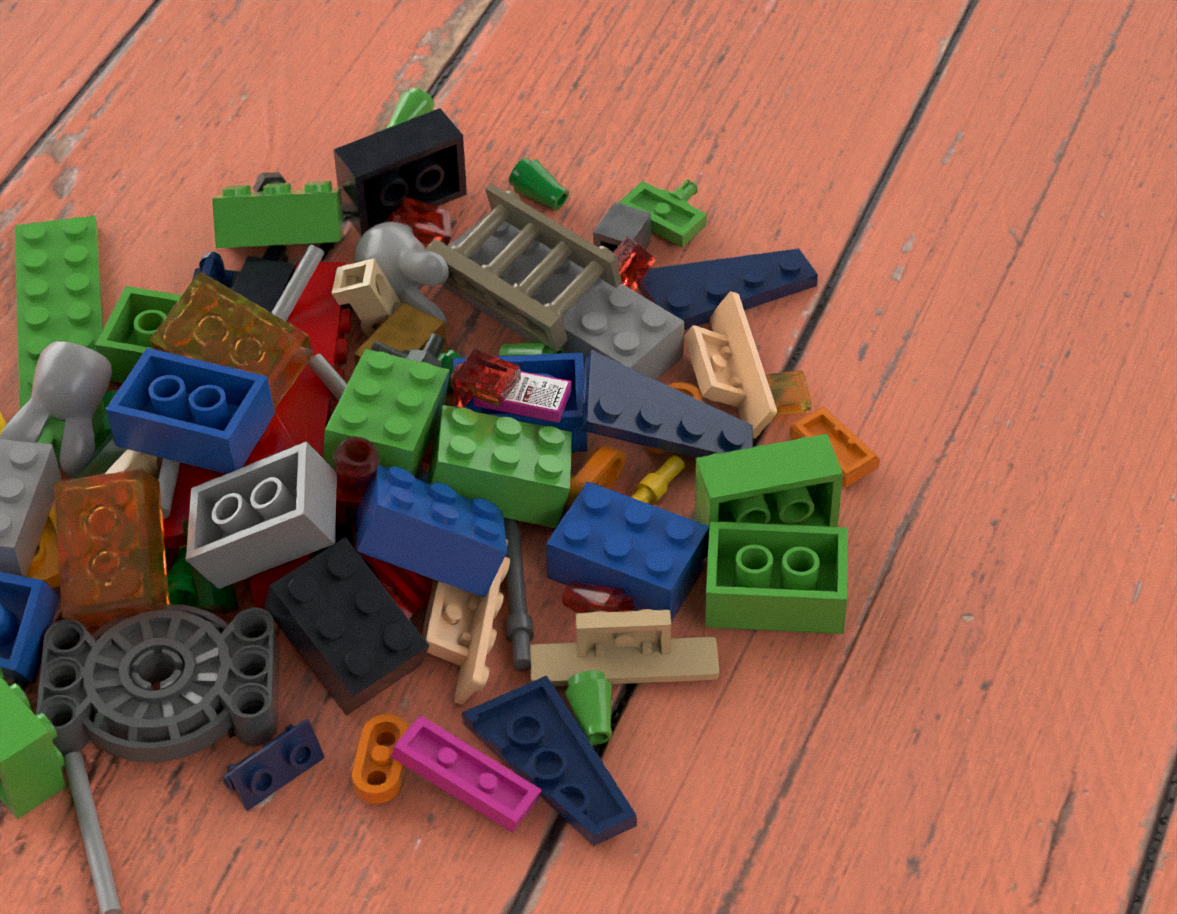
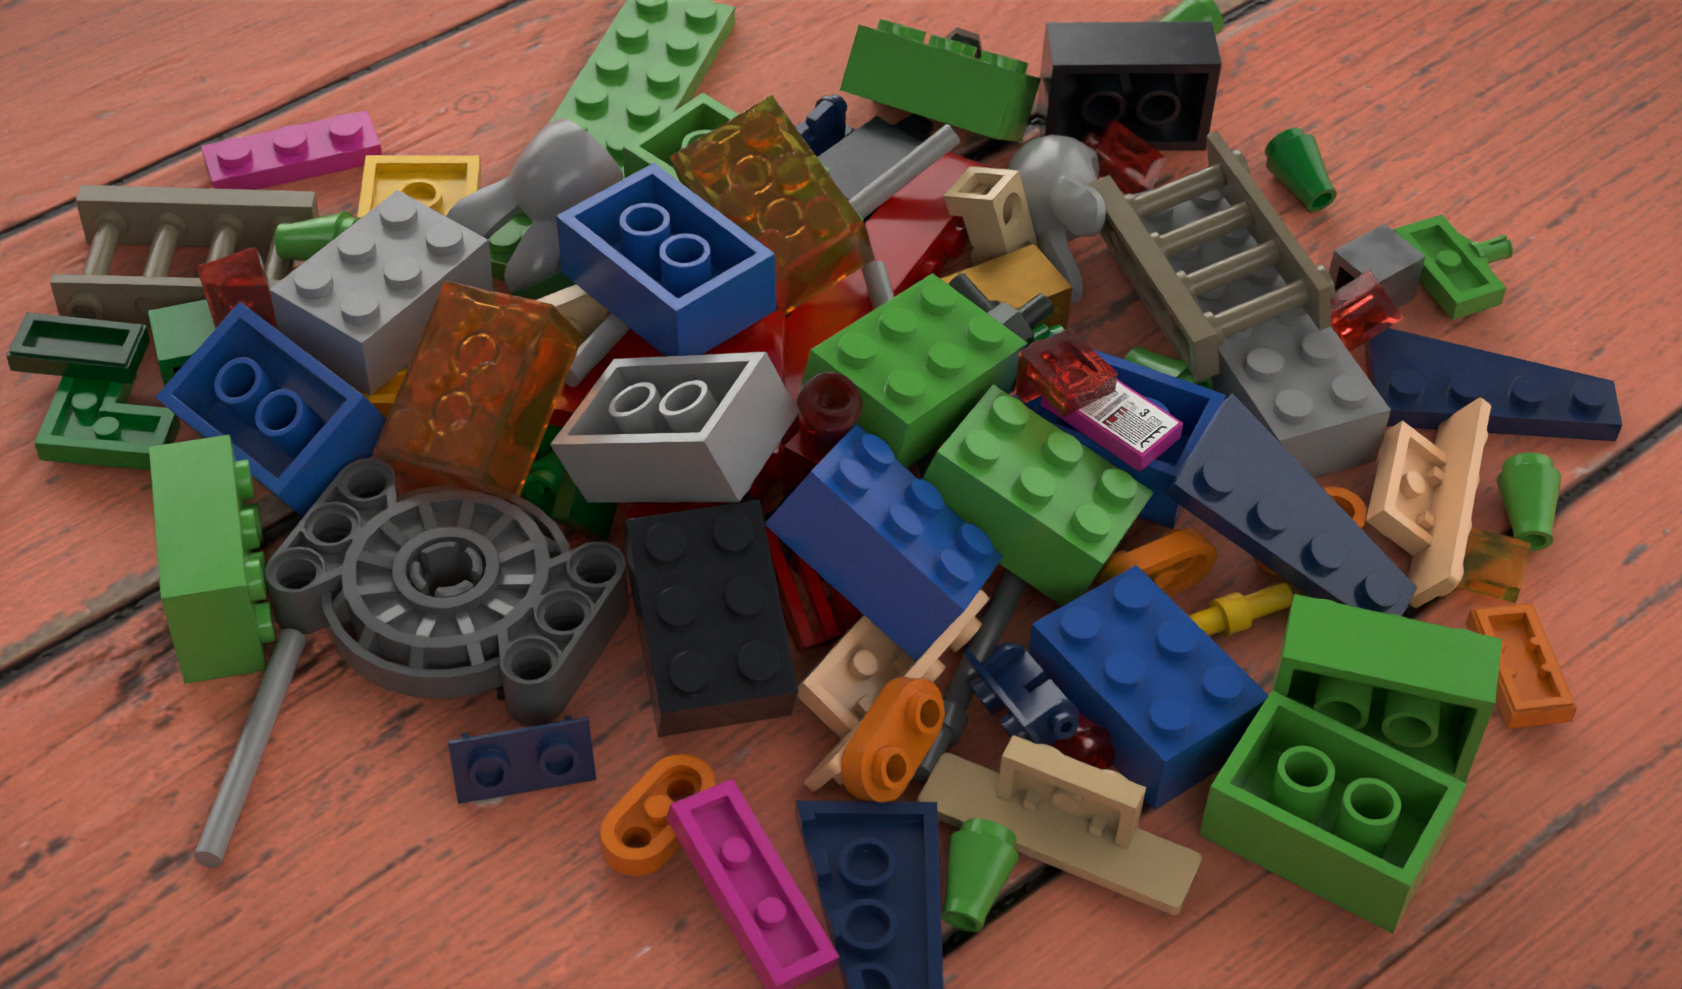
camera: 25 degrees right, 0 degrees up
(501, 649) = (892, 739): none -> orange plate
(547, 589) = (1020, 688): none -> dark blue hinge
(787, 340) = (1530, 497): none -> bright green cone

